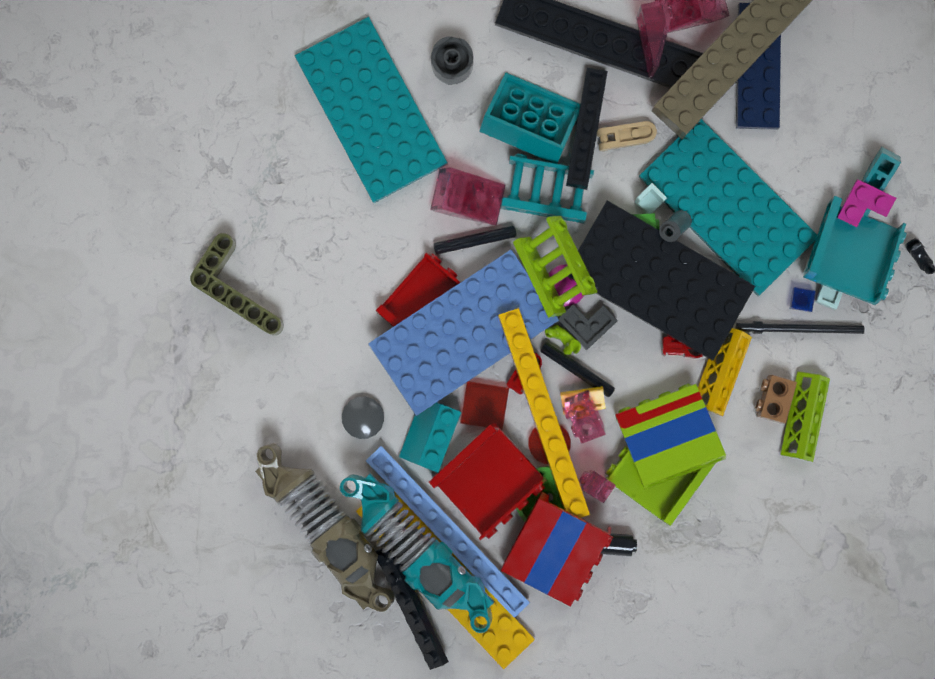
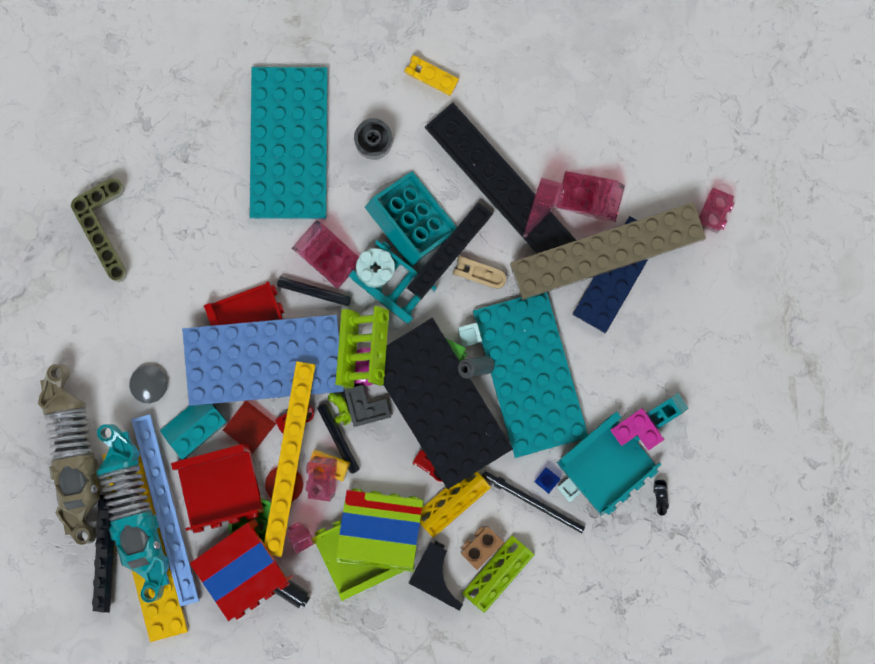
camera: 25 degrees right, 0 degrees up
(520, 194) = (382, 259): none -> light aqua plate
(741, 452) = (429, 575): none -> black arch

